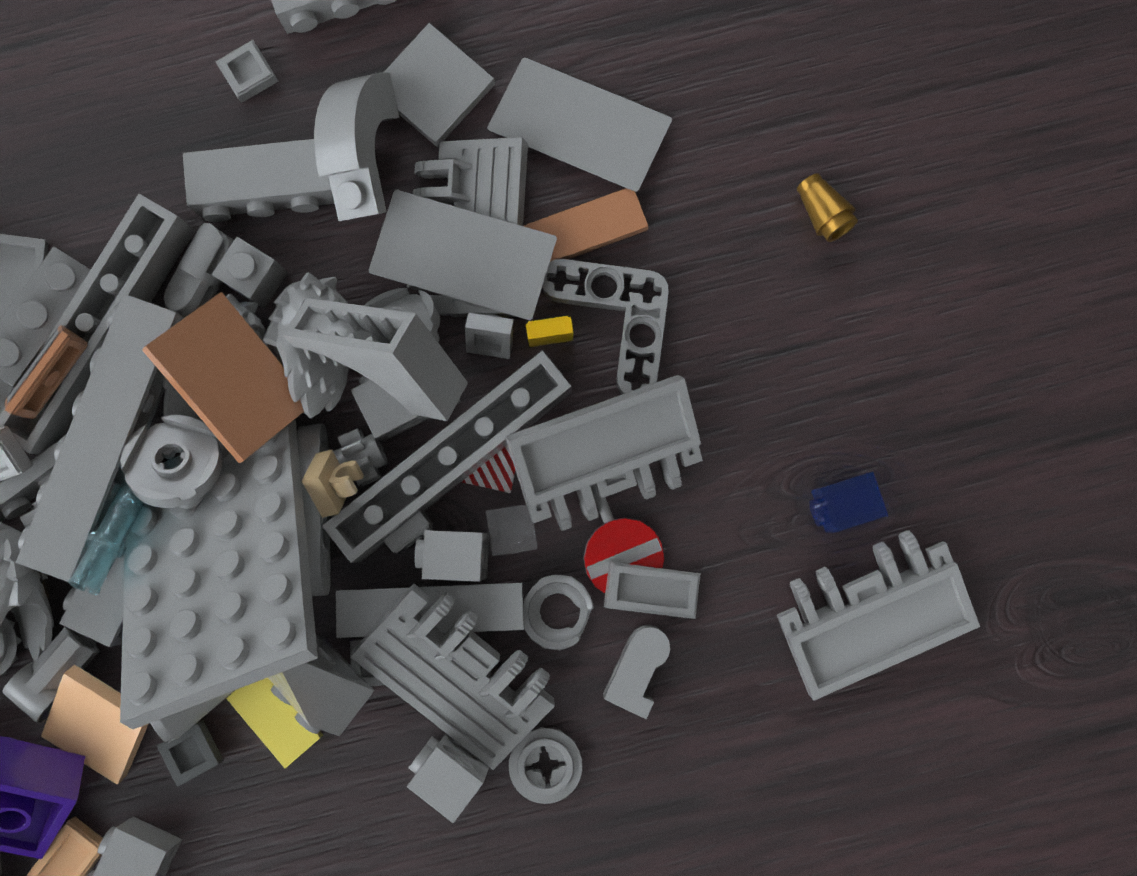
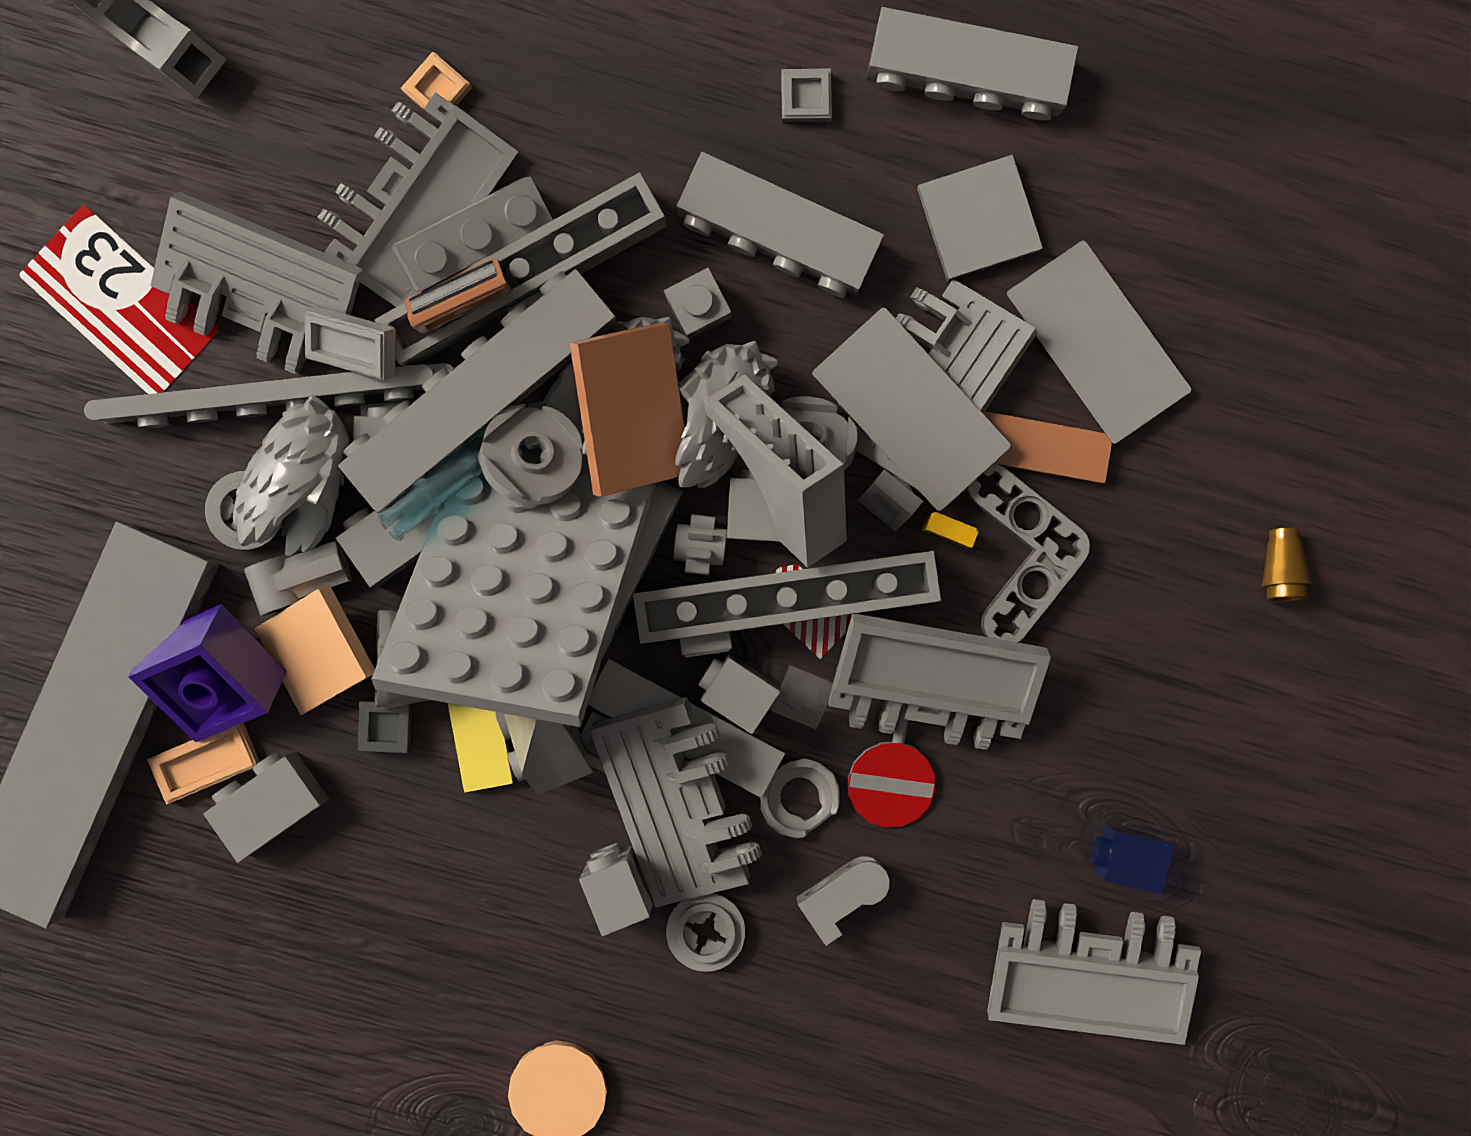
camera: 25 degrees right, 5 degrees up
(193, 280) = (647, 274): light grey arm -> none
(330, 482) = (665, 558): tan tile -> none
(346, 142) = (868, 236): light grey arch -> none
(652, 590) = (900, 830): light grey tile -> none

